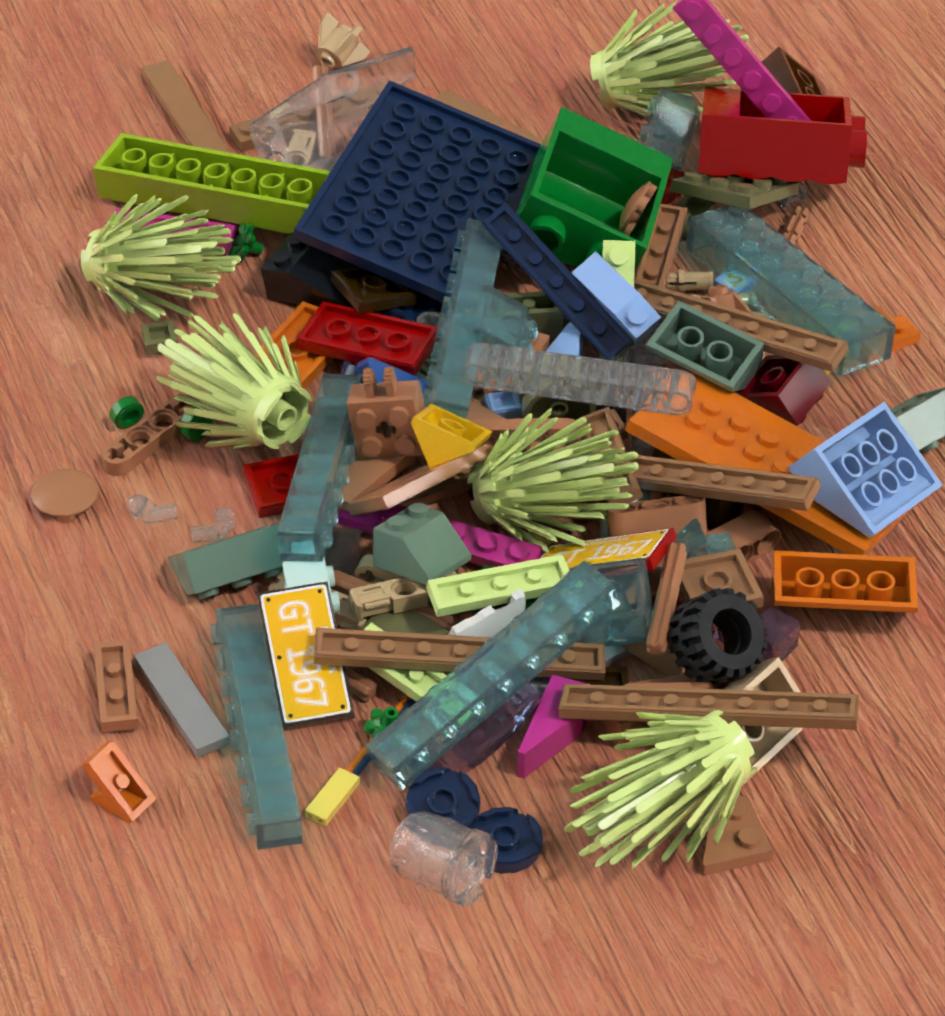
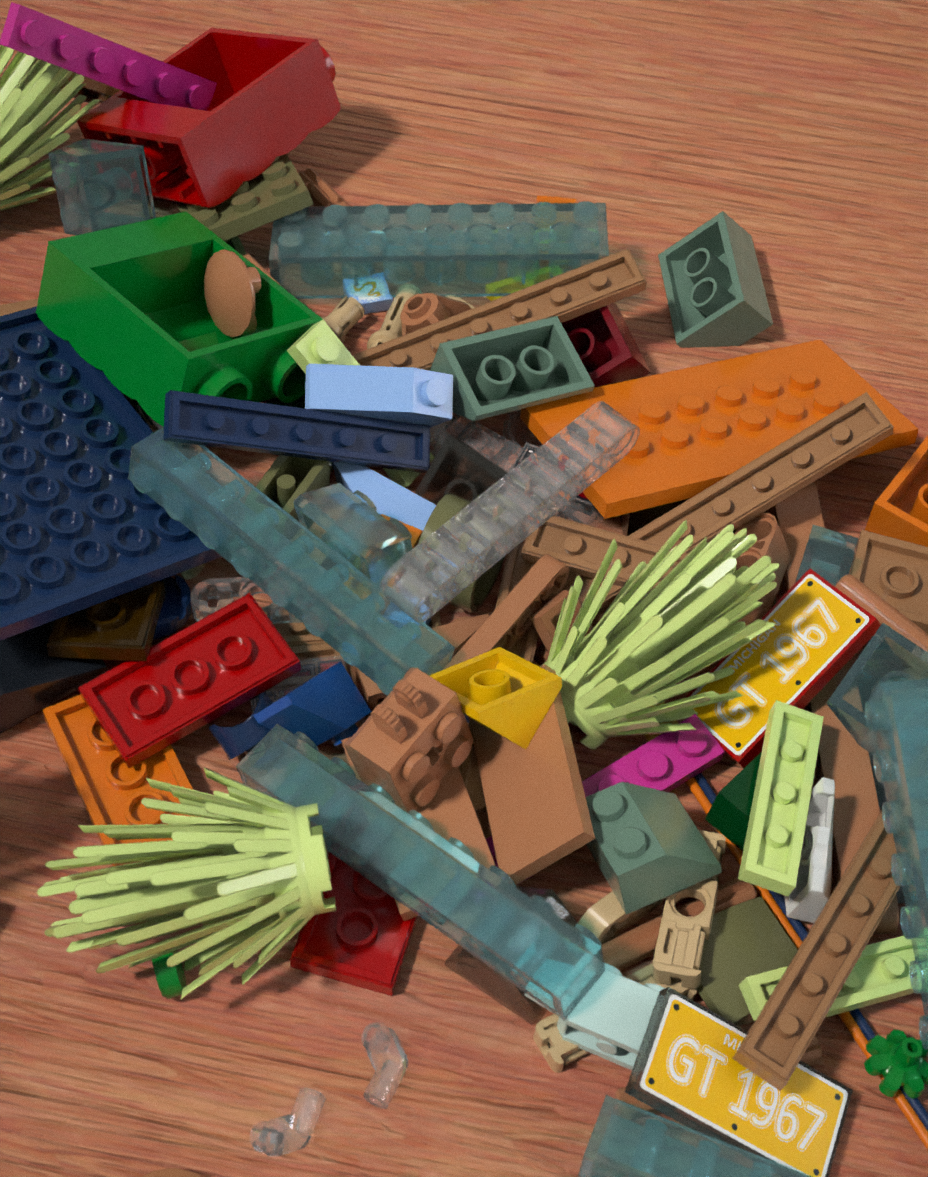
camera: 60 degrees left, 10 degrees up
(123, 455) = (132, 1037): nougat beam -> none
(126, 412) = (76, 1047): green tile -> none
(228, 561) = (468, 1079): sand green slope -> none
(869, 472) = (800, 354): light blue slope -> none

